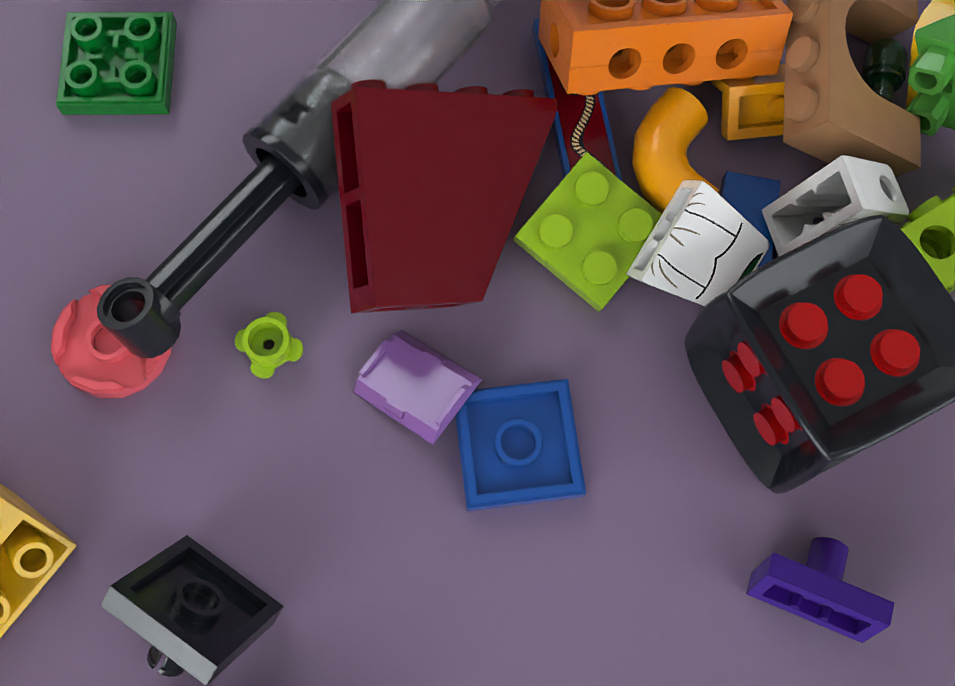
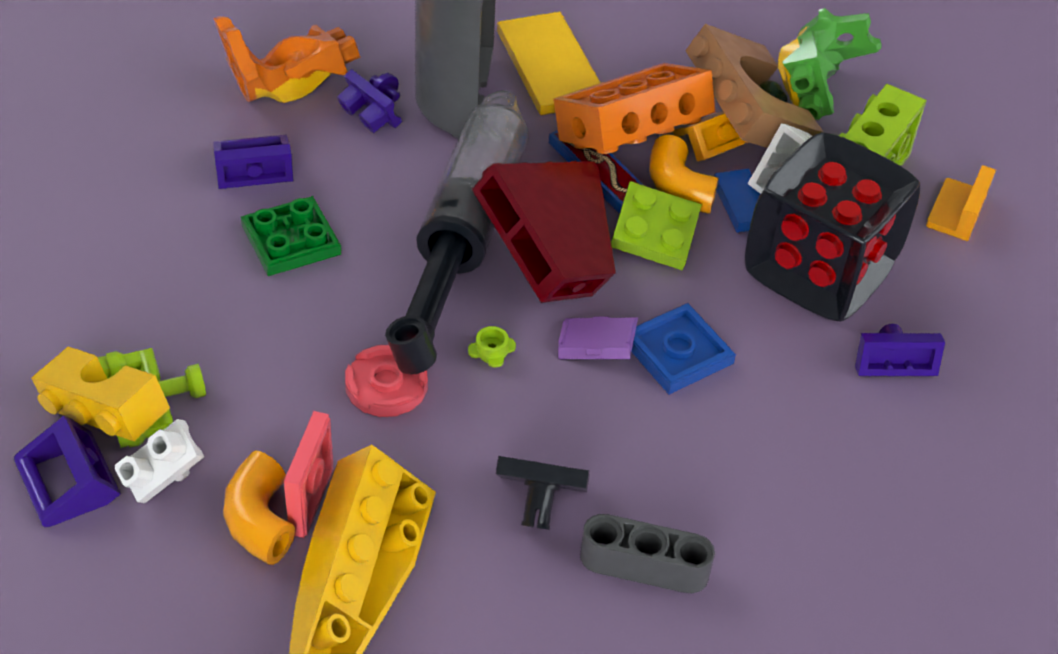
camera: 25 degrees left, 25 degrees down
(698, 246) = (724, 203): white torso -> none

